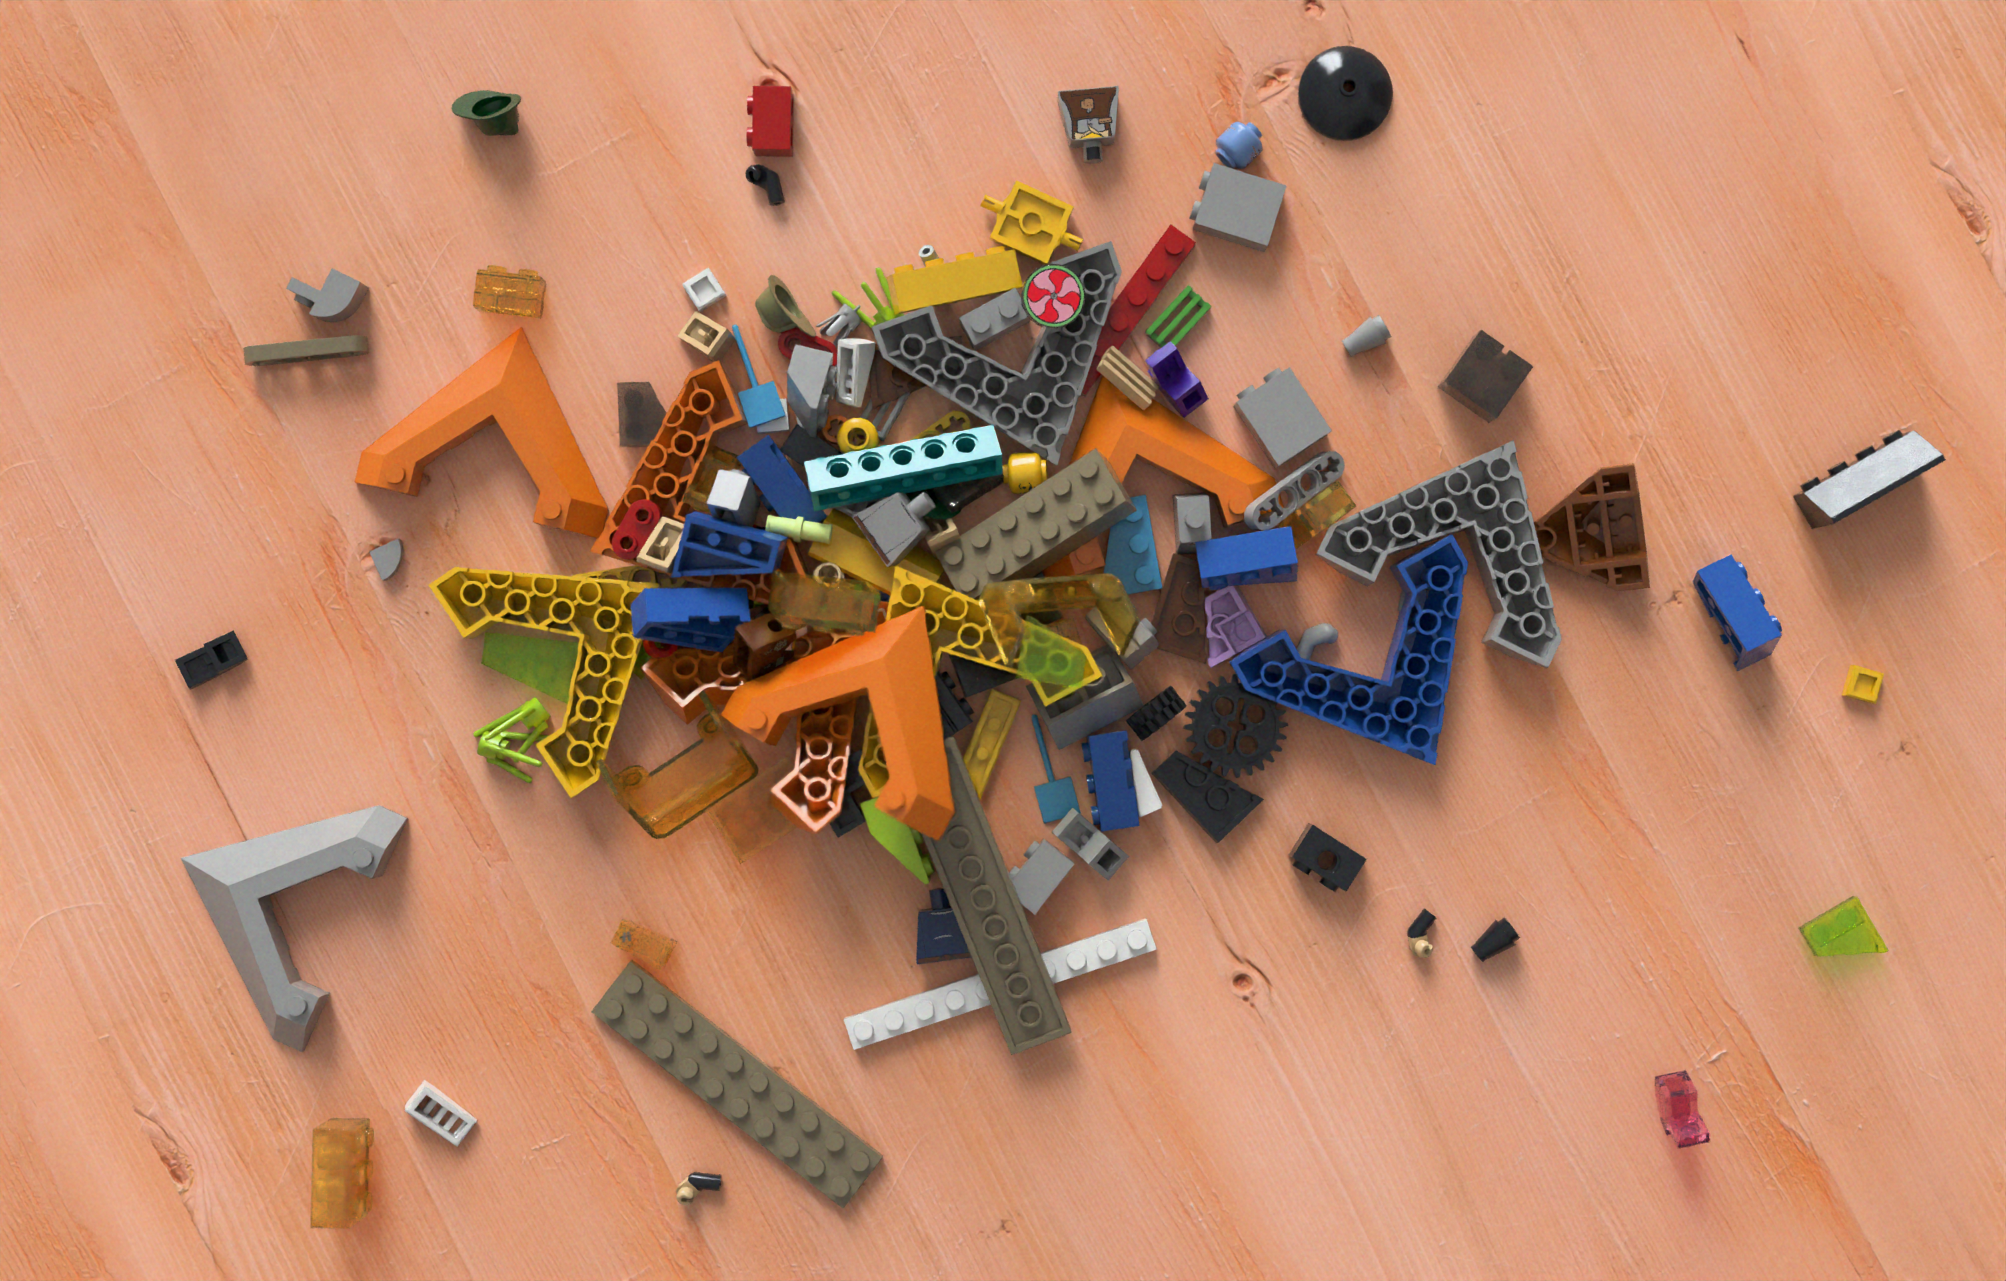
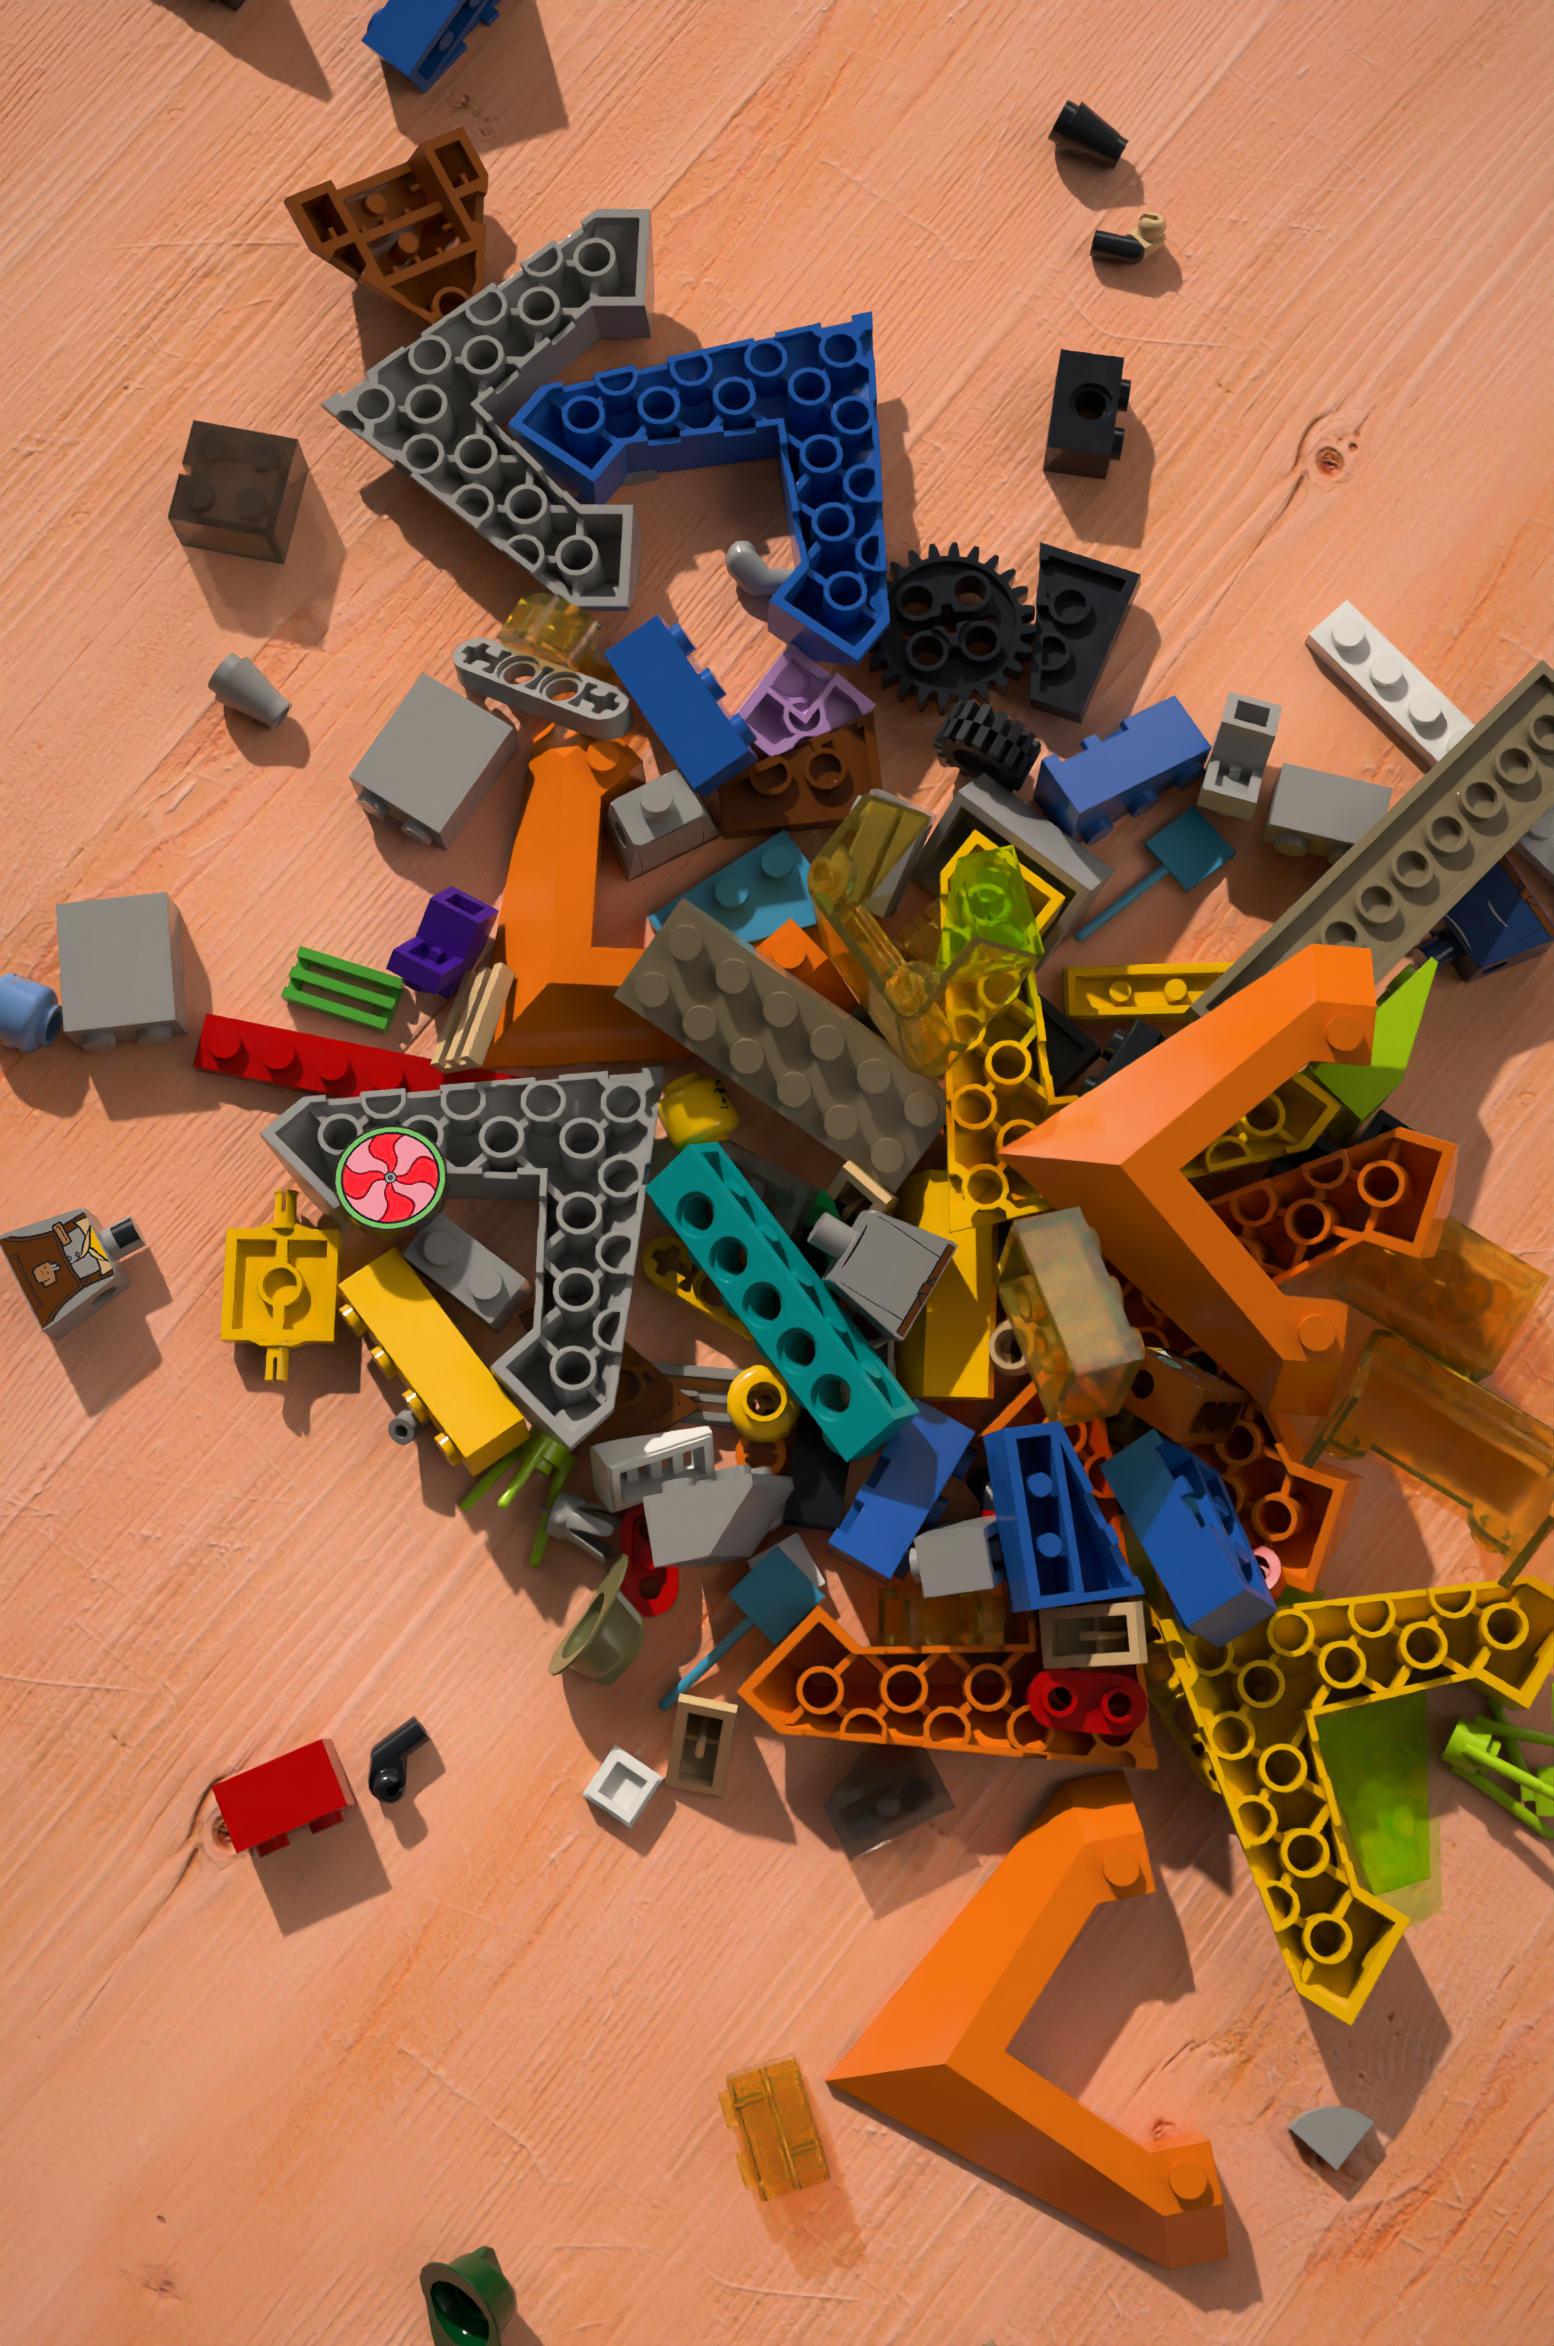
camera: 110 degrees left, 10 degrees down
(799, 529) = (960, 1426): yellowish green pin -> none
(1146, 795) = (1123, 702): white slope -> none

